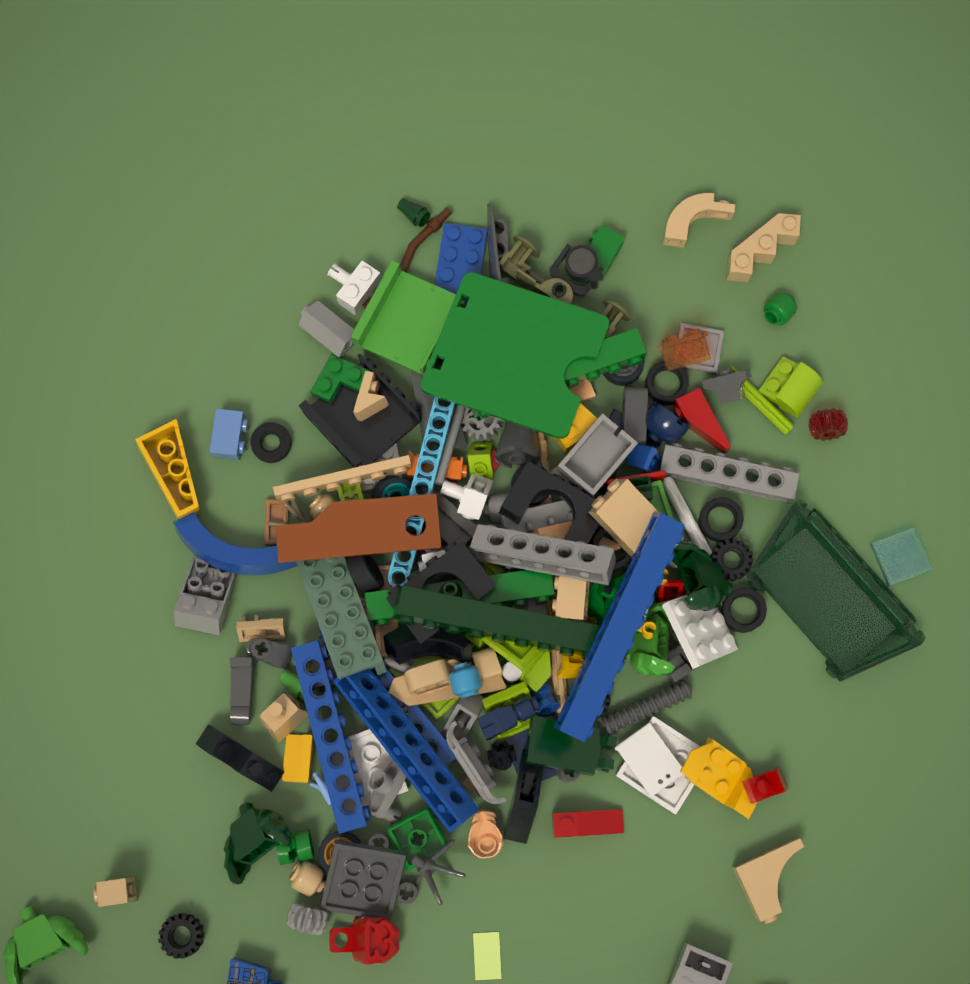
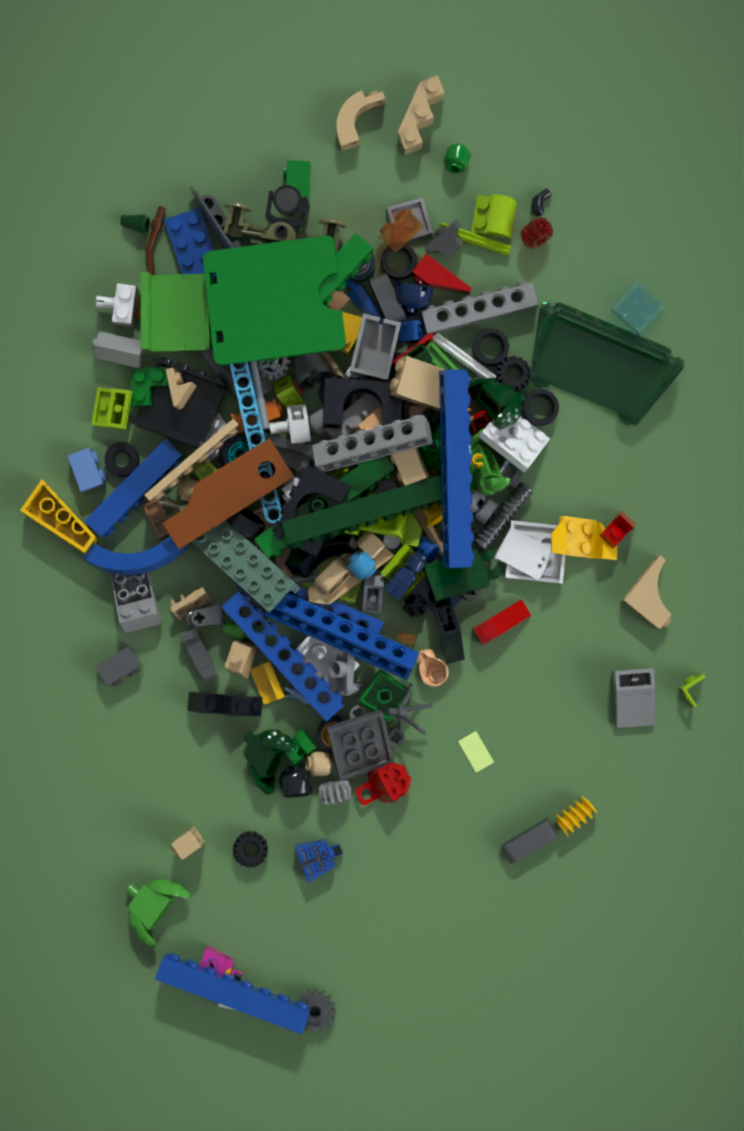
camera: 30 degrees left, 10 degrees up
(149, 658) = (118, 666): none -> dark grey brick
(258, 481) = (133, 489): none -> blue brick
(269, 885) = (295, 782): none -> black helmet
(288, 384) = (112, 408): none -> lime brick
(479, 774) = (405, 627): light grey plate -> none
(608, 402) = (362, 300): none -> blue bar
(634, 687) = (487, 507): none -> light grey wheel
(845, 394) = (537, 202): none -> black arm

